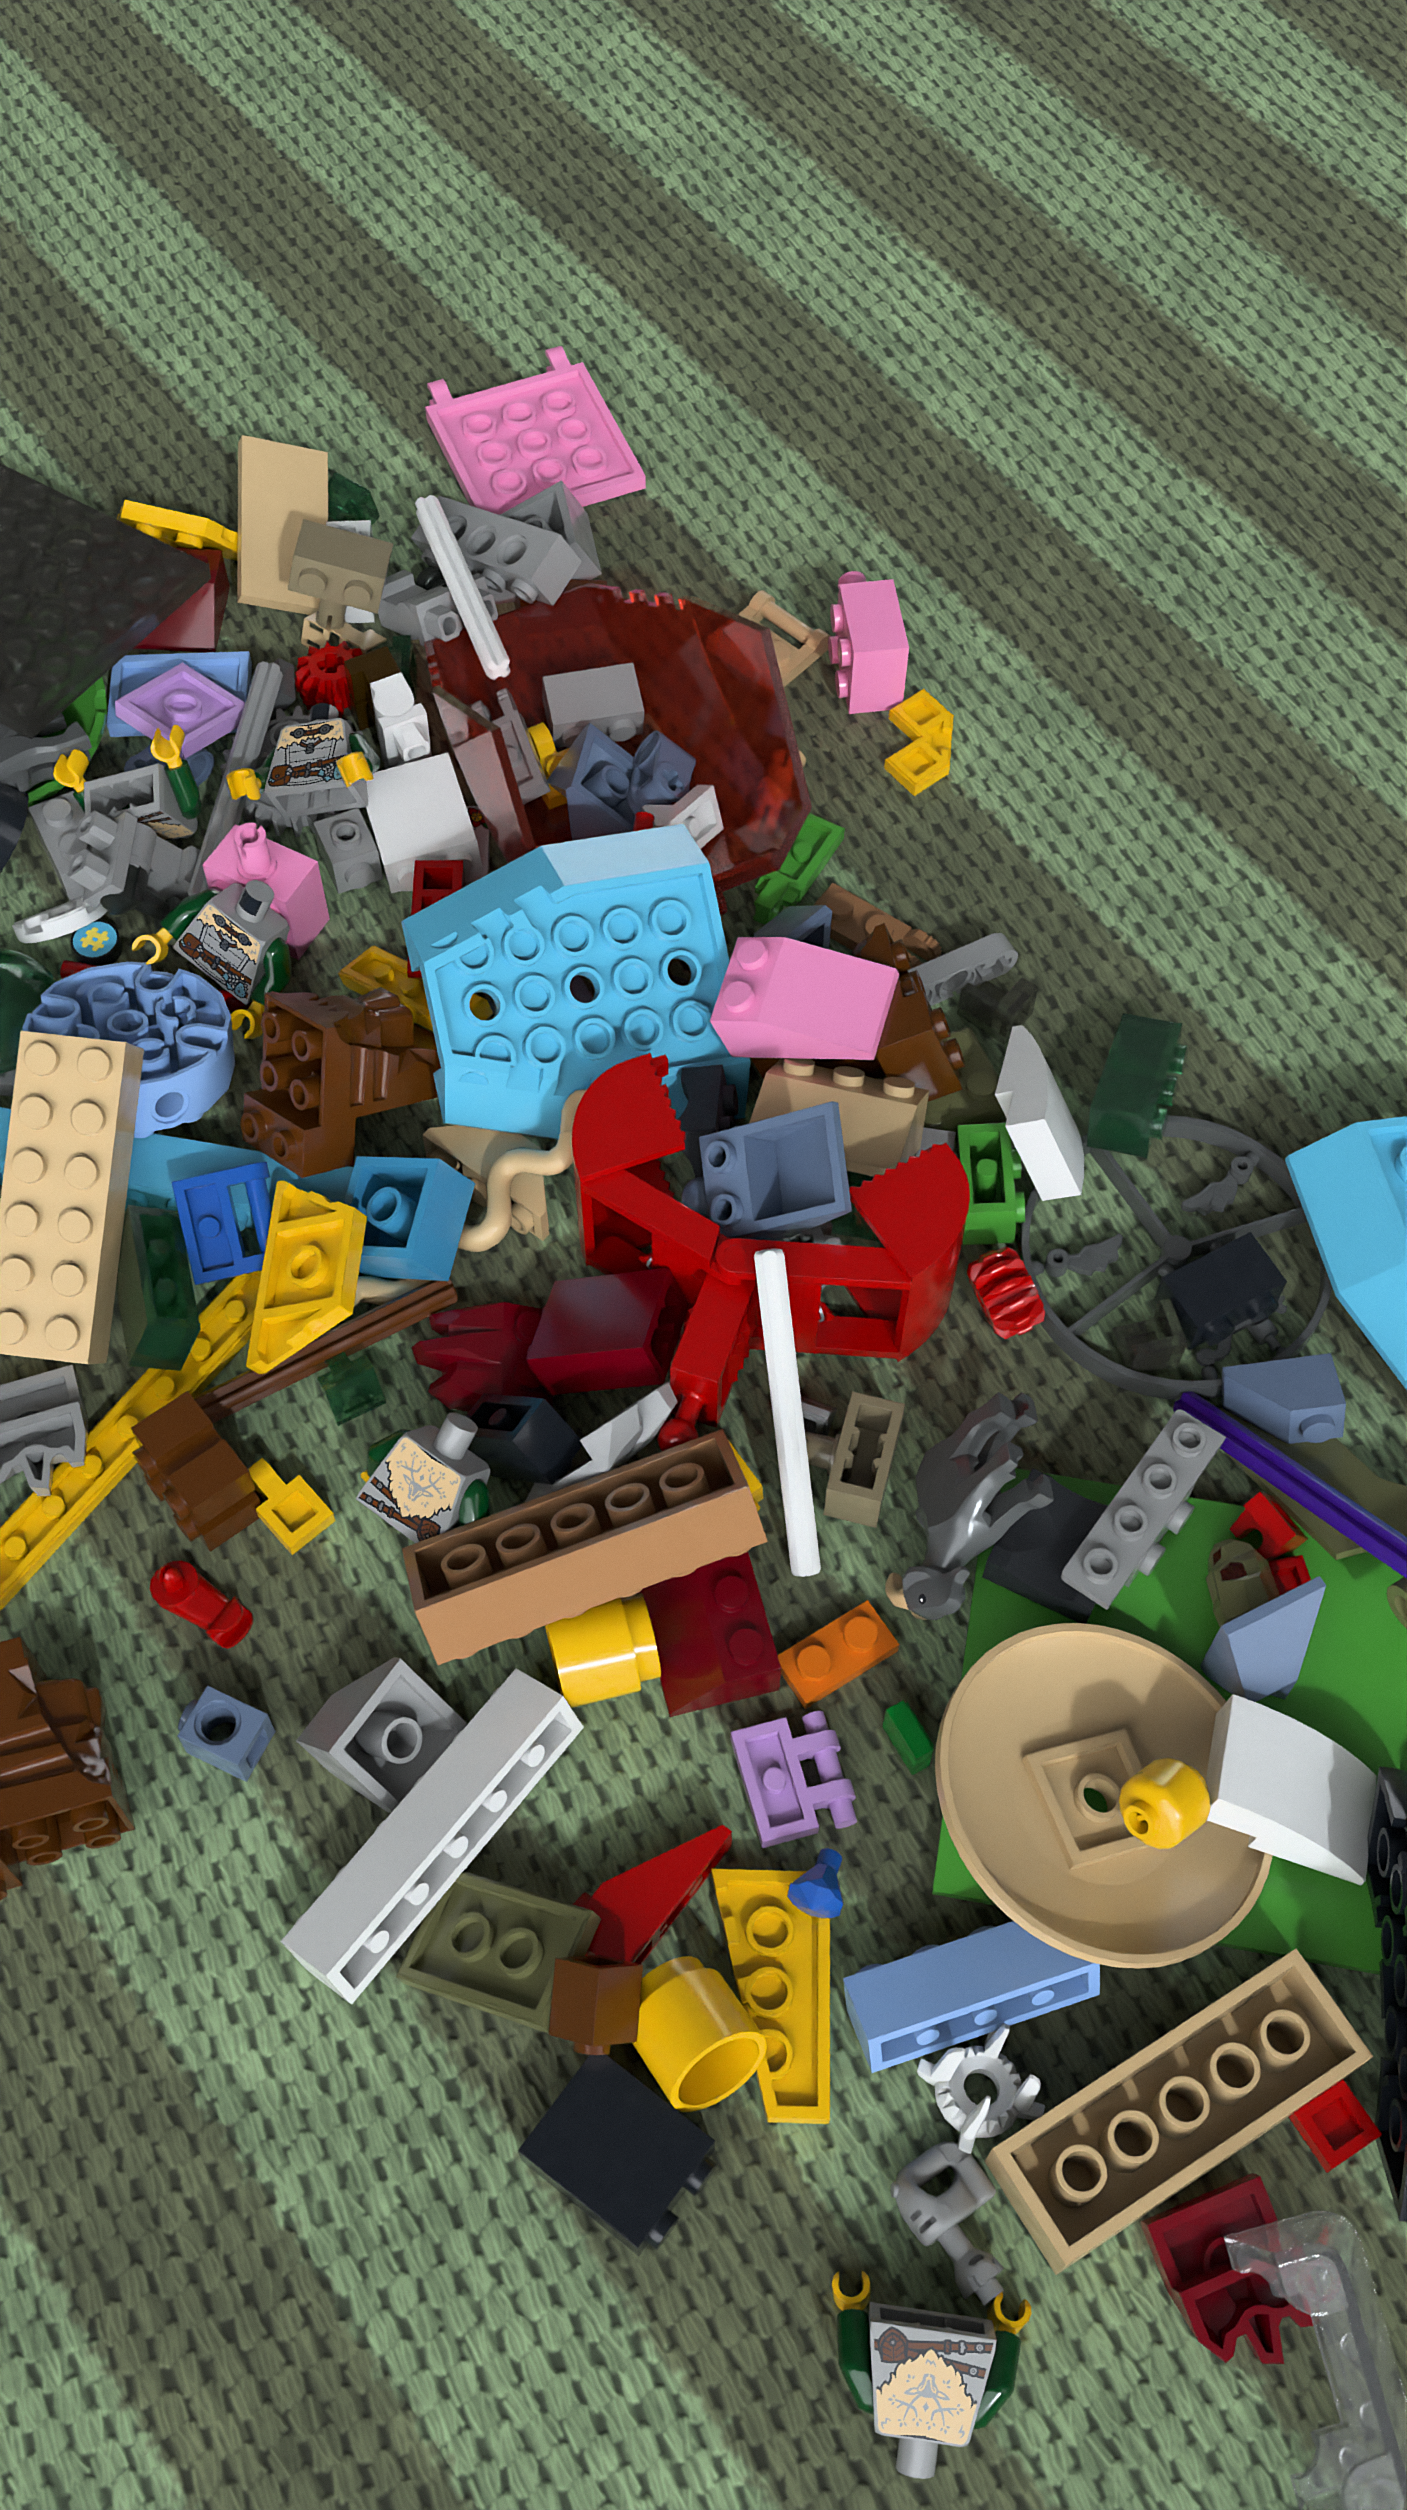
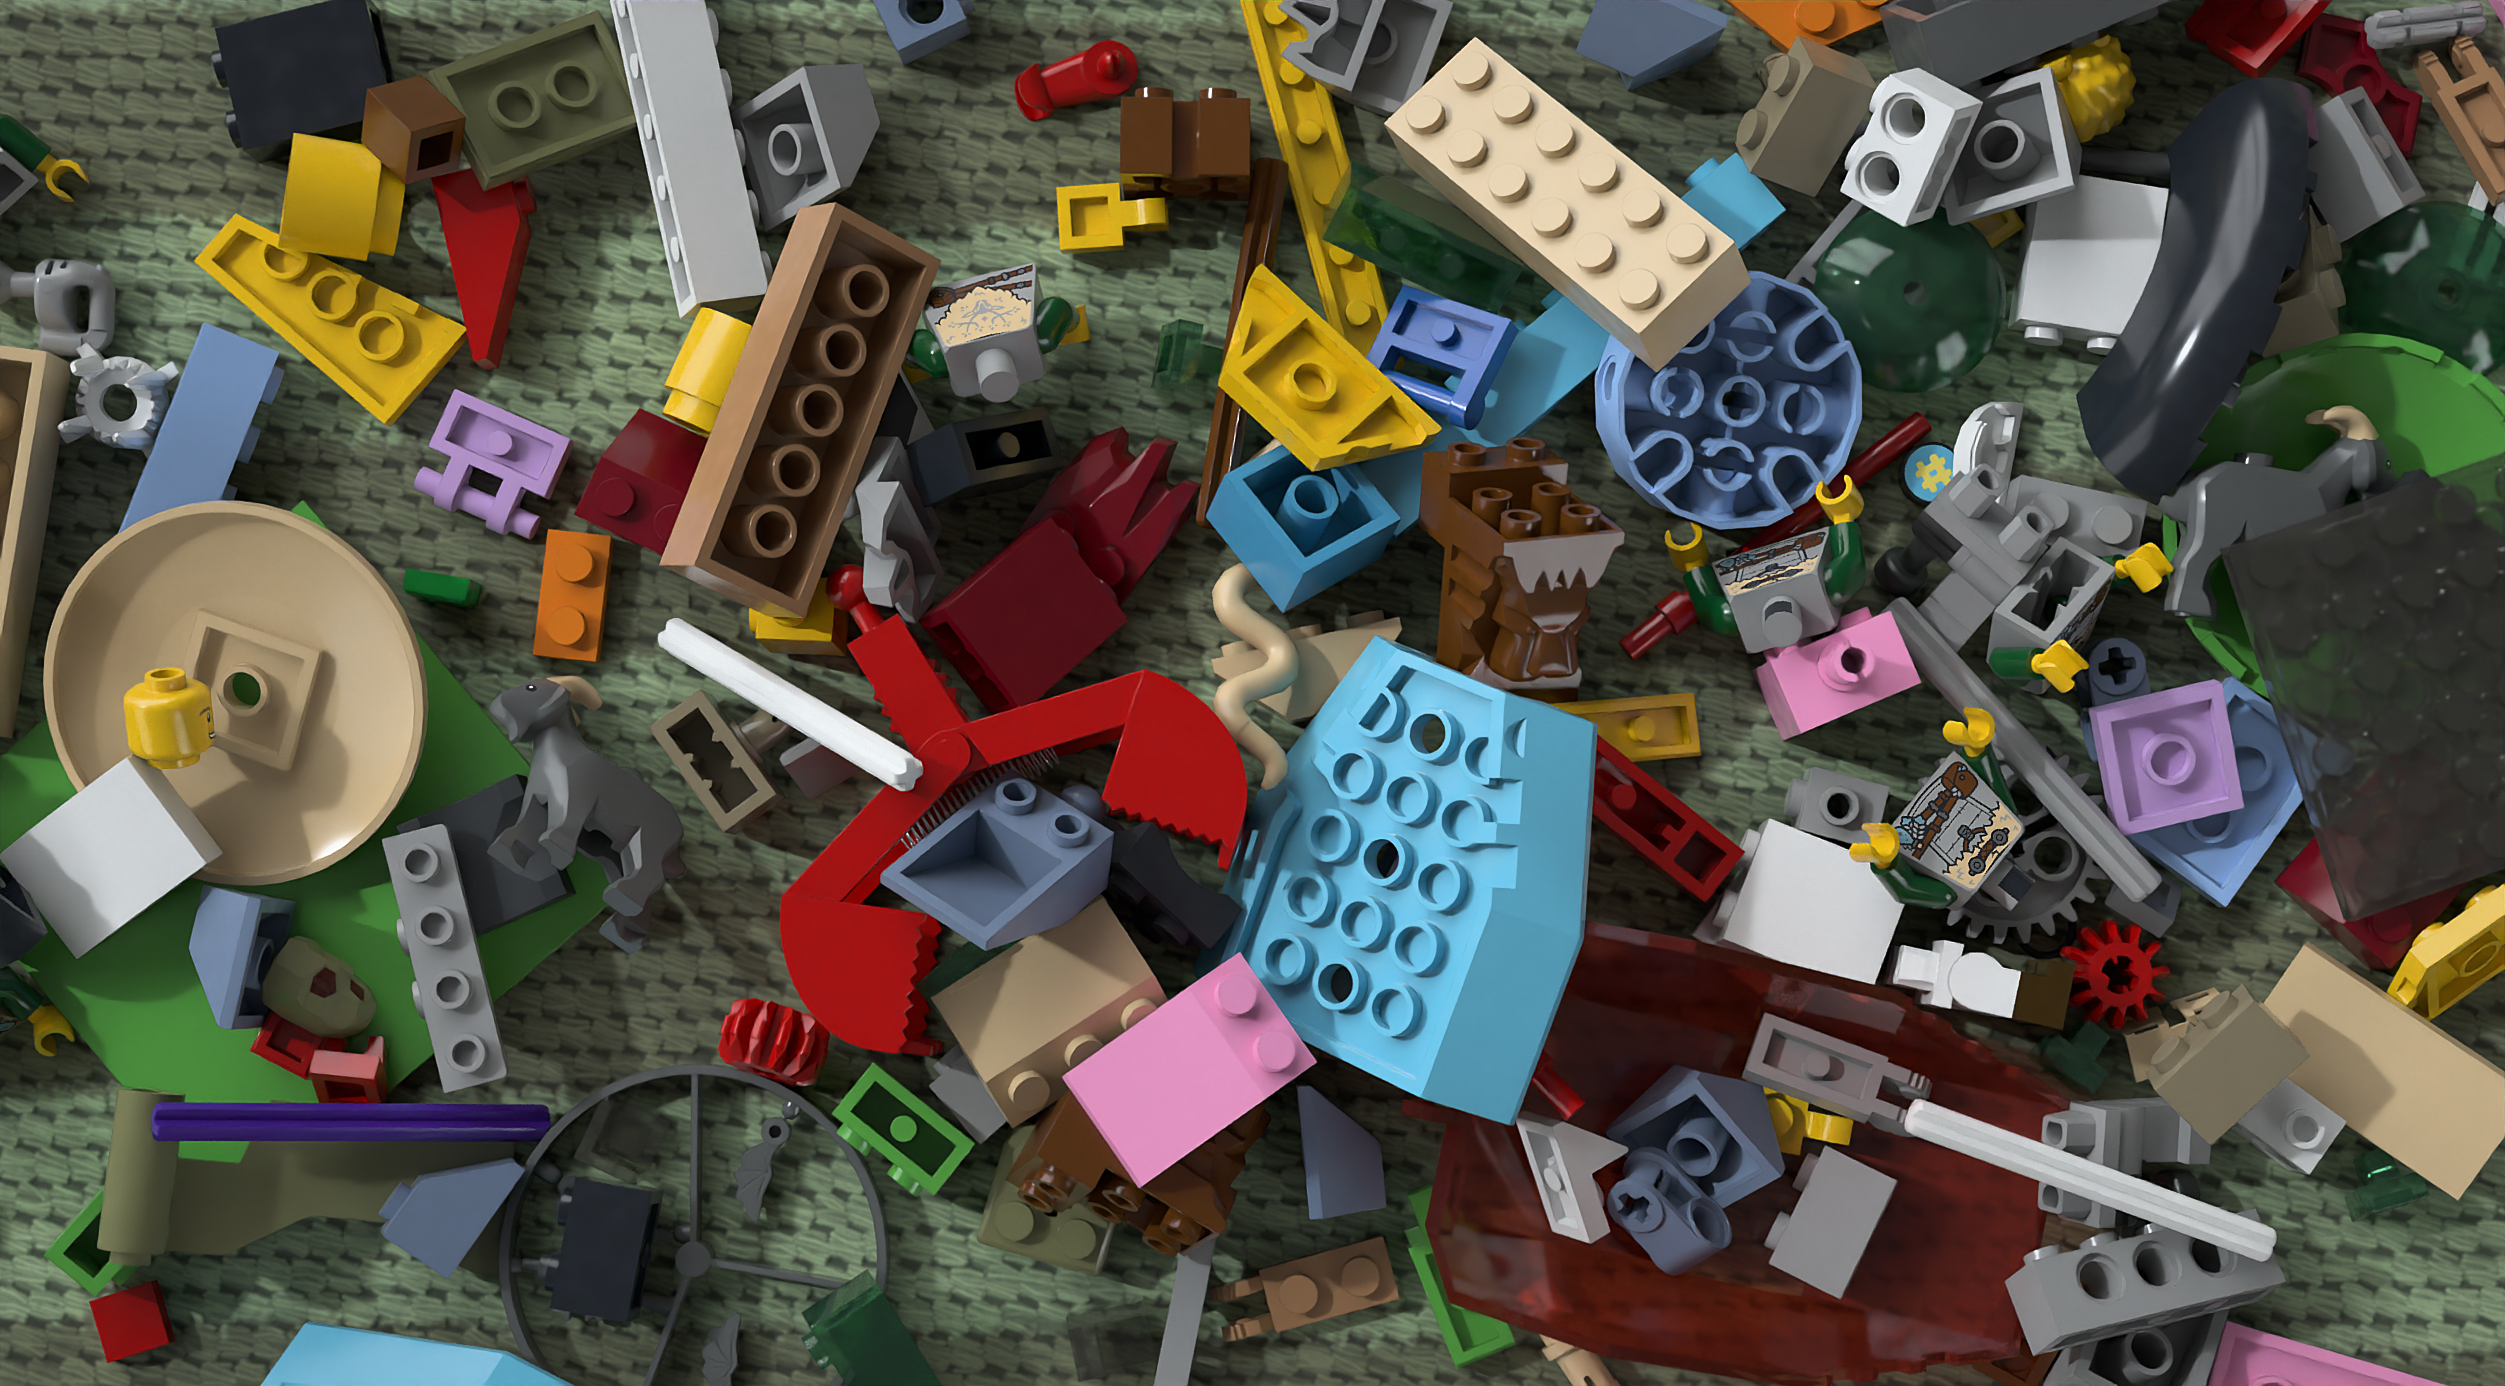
camera: 130 degrees right, 25 degrees up
(819, 1889) = (370, 397): blue rock -> none
(1039, 1119) = (915, 1236): white slope -> none

